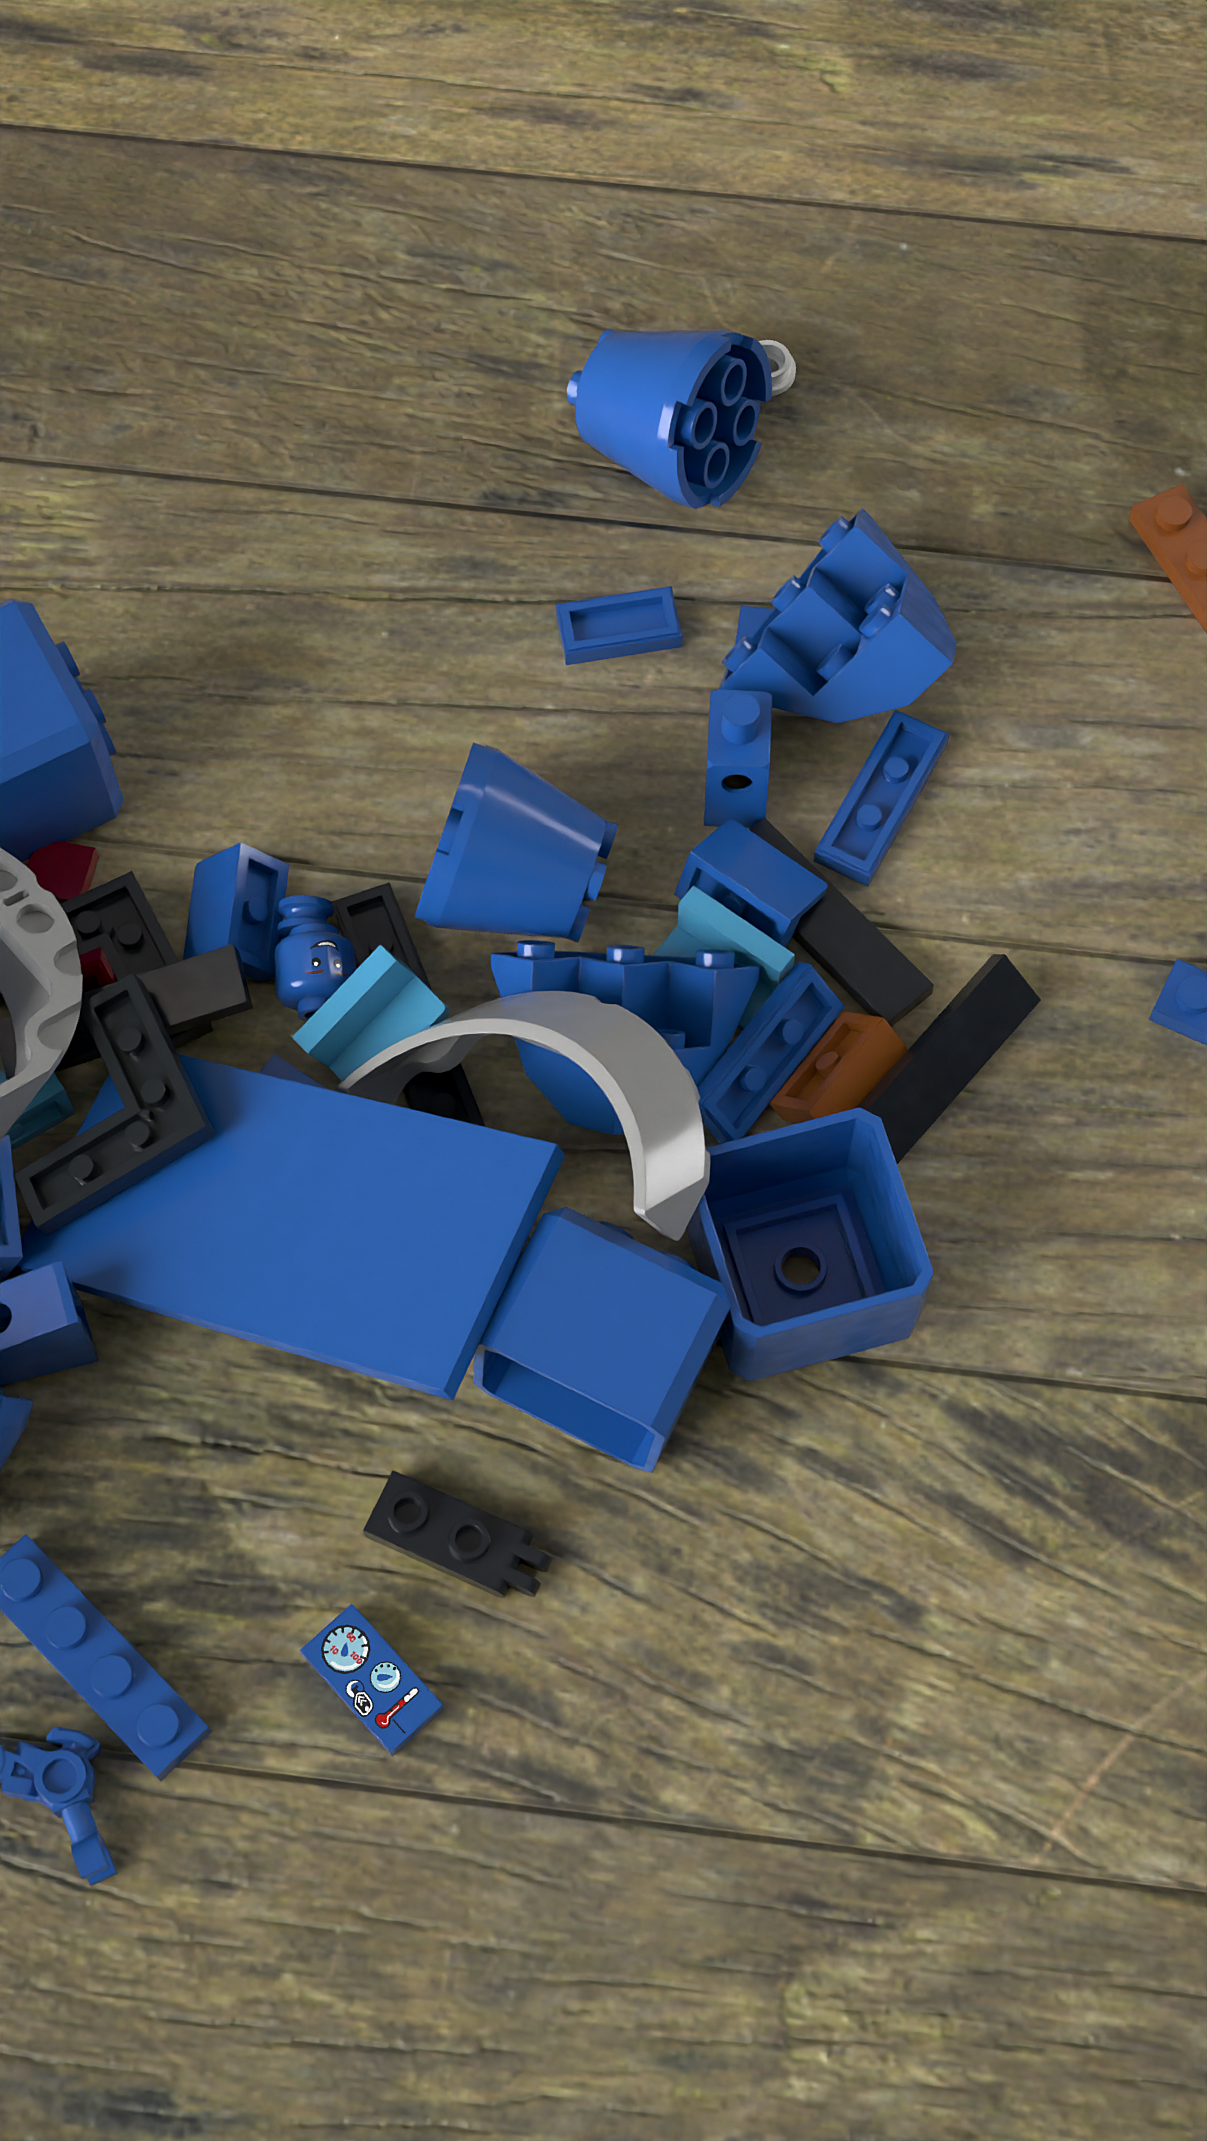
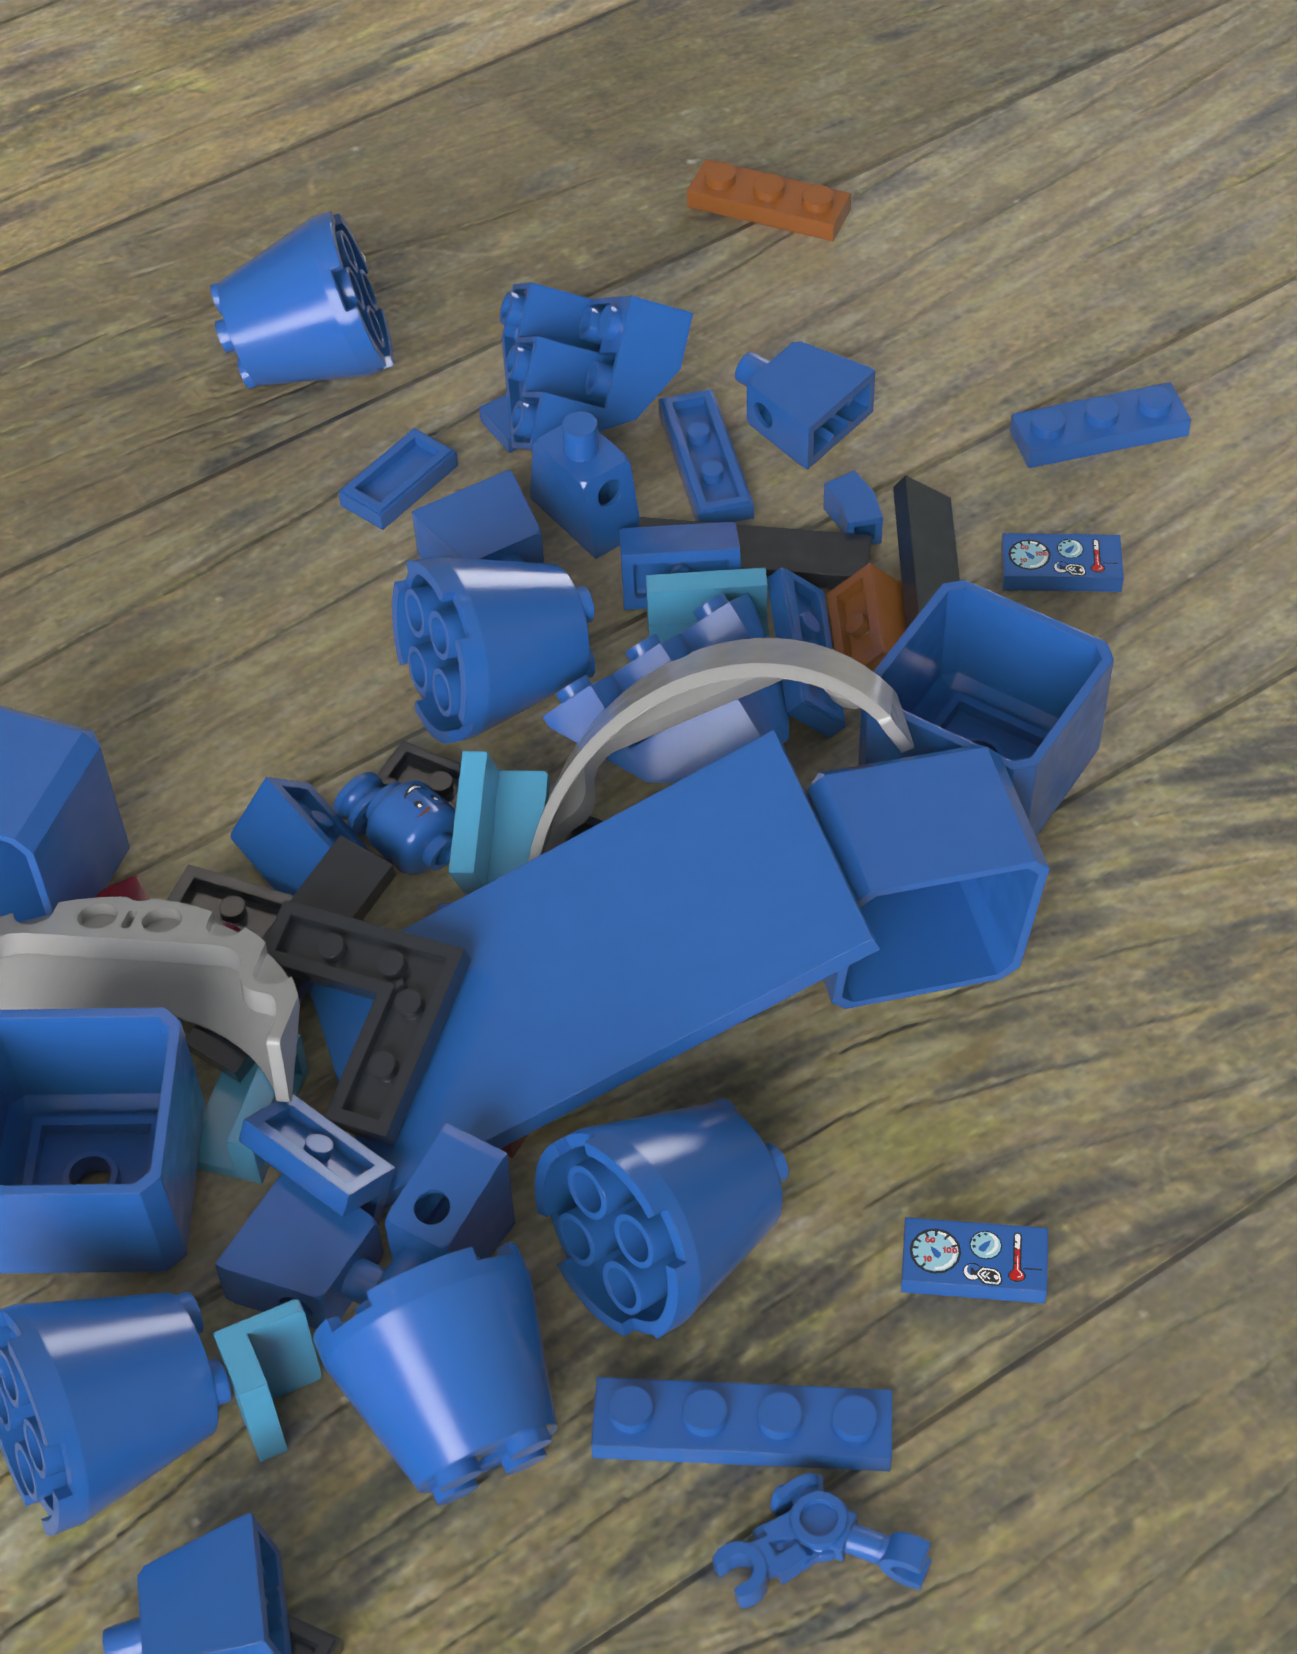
camera: 40 degrees left, 15 degrees down
(173, 1453) = (658, 1210): none -> blue cone
(454, 1537) = (927, 1119): black hinge -> none
(621, 743) = (480, 523): none -> blue torso
(948, 947) = (853, 506): none -> blue piece
(1013, 806) = (805, 398): none -> blue torso
(1071, 1137) = (1061, 562): none -> blue tile

